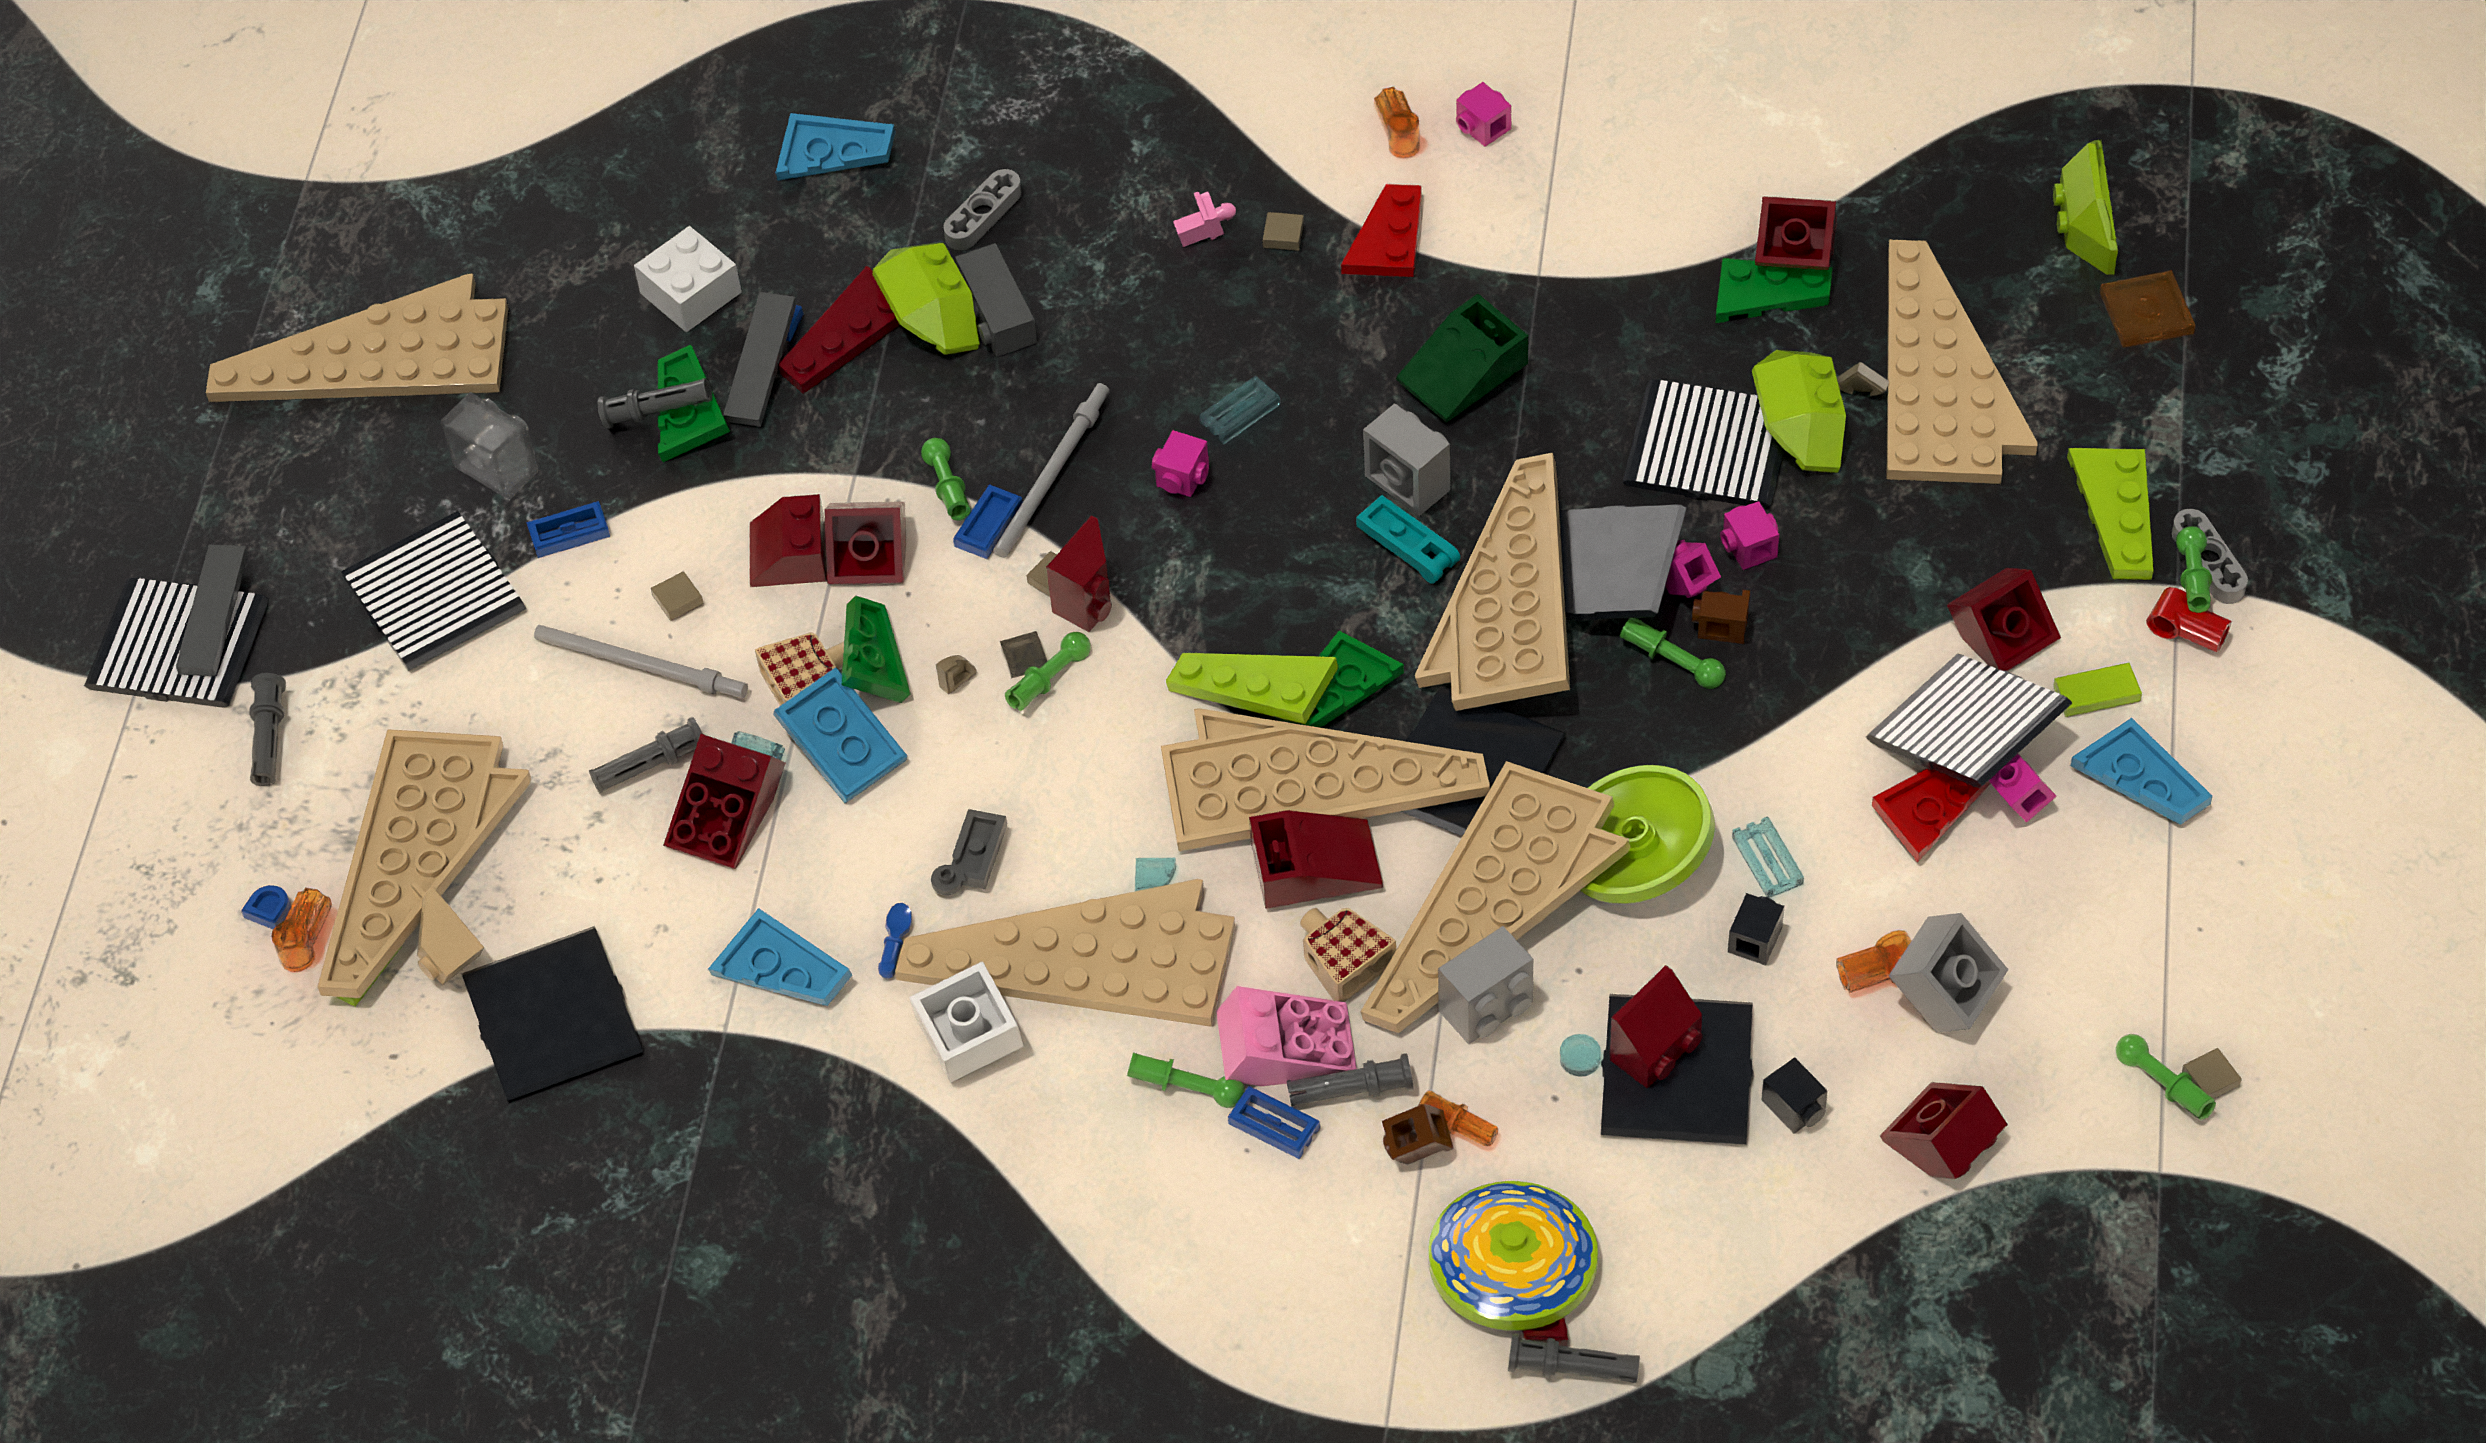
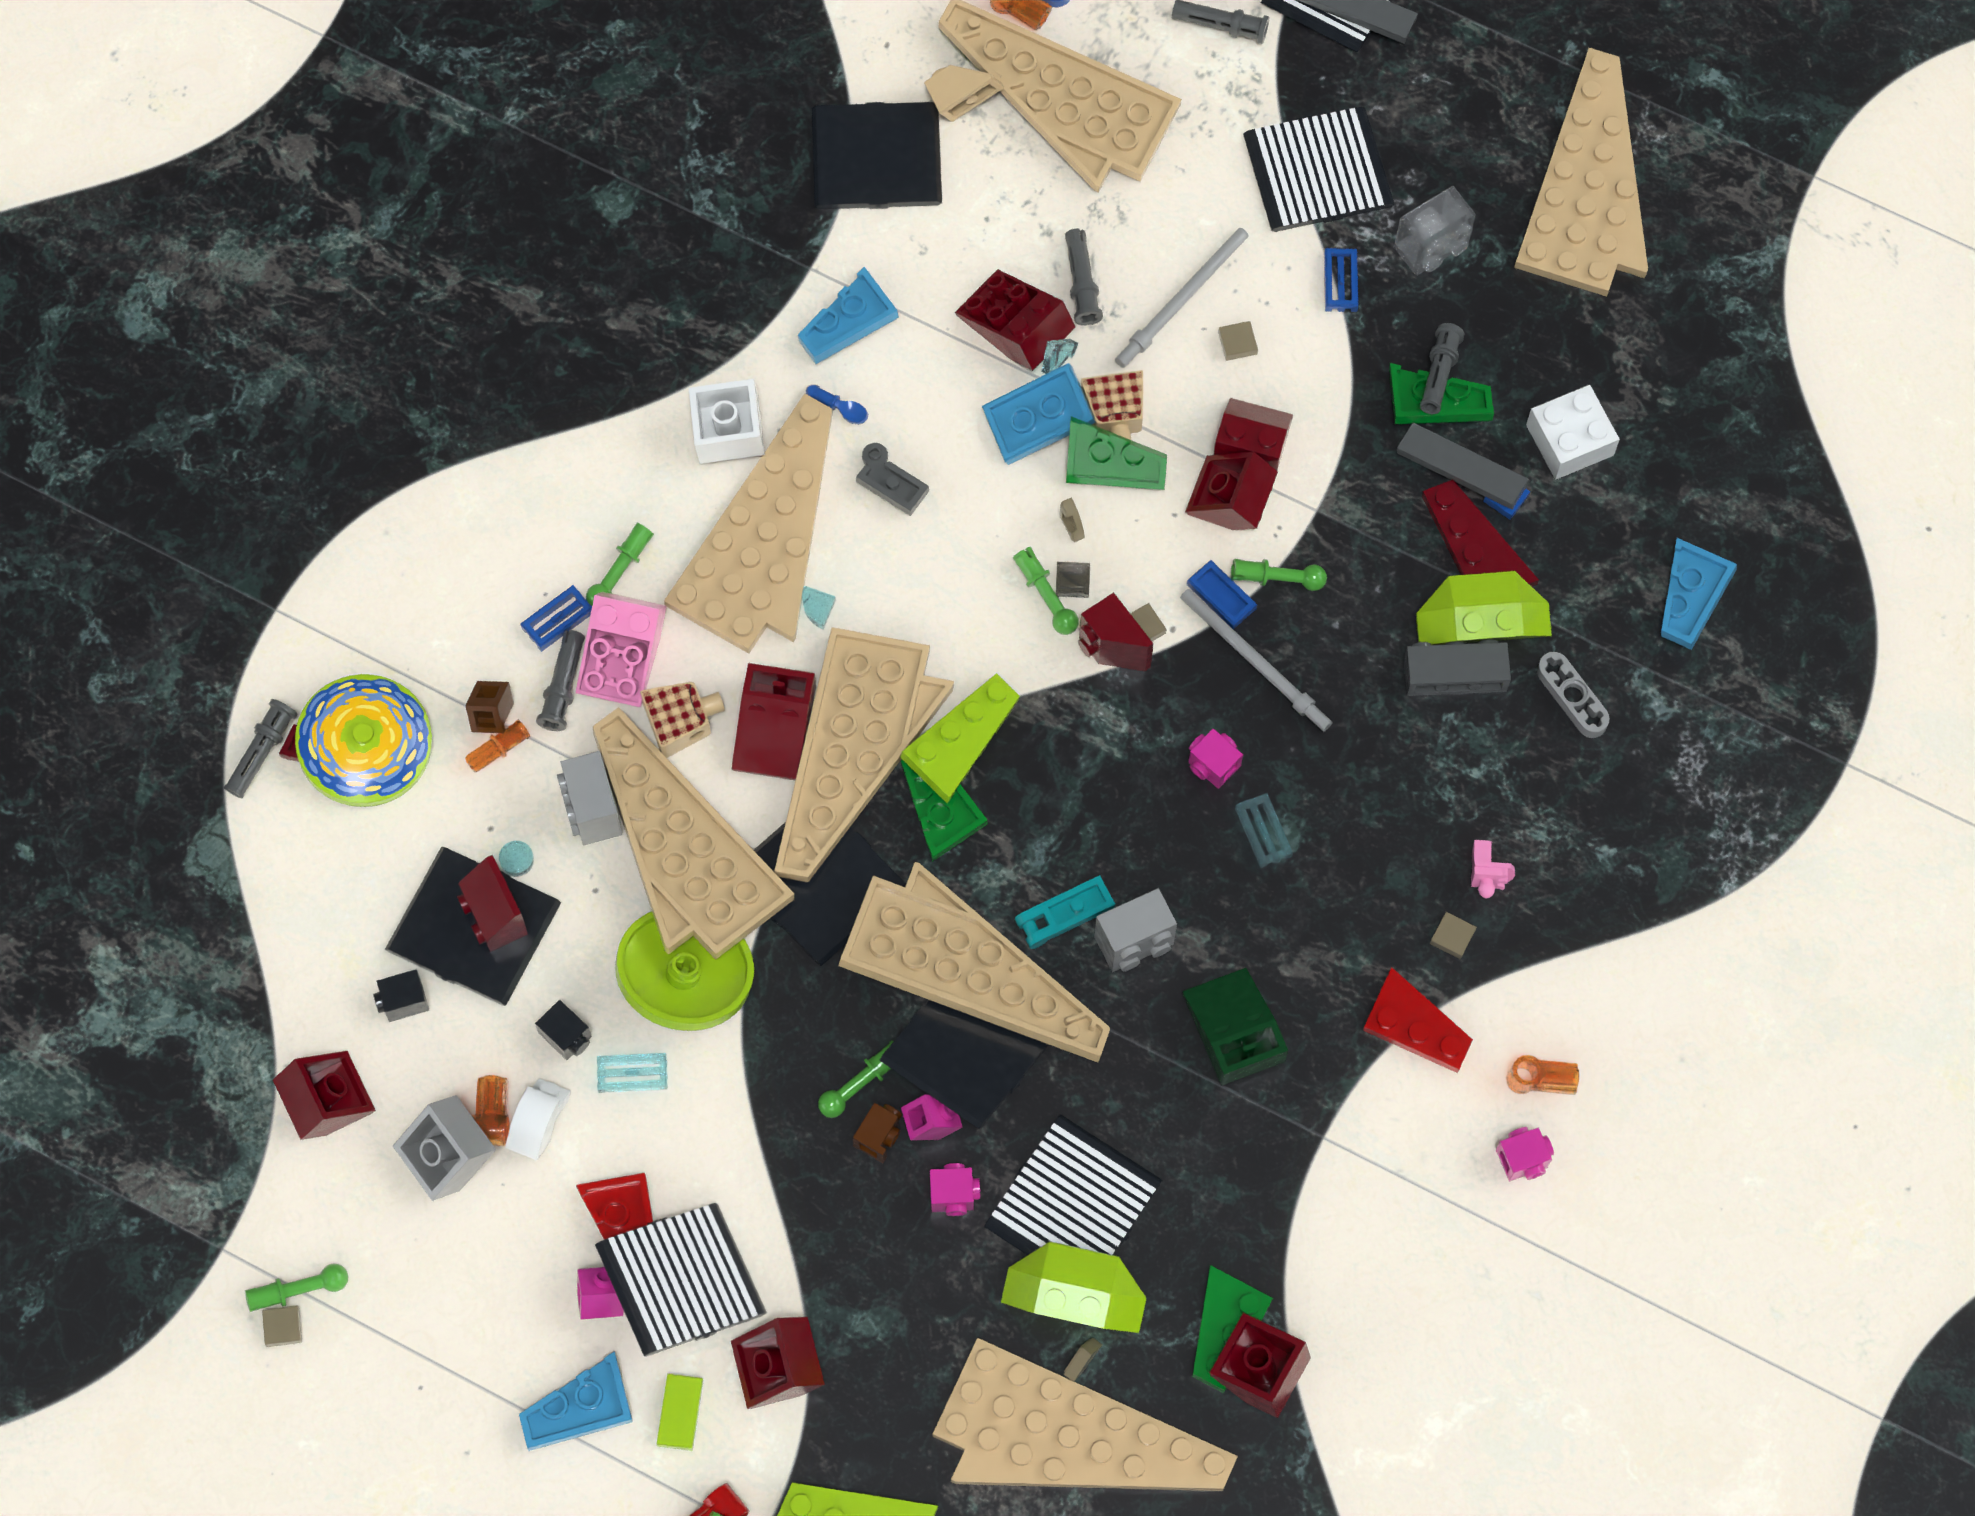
camera: 105 degrees right, 15 degrees up
(1864, 906) = (535, 1118): none -> white brick

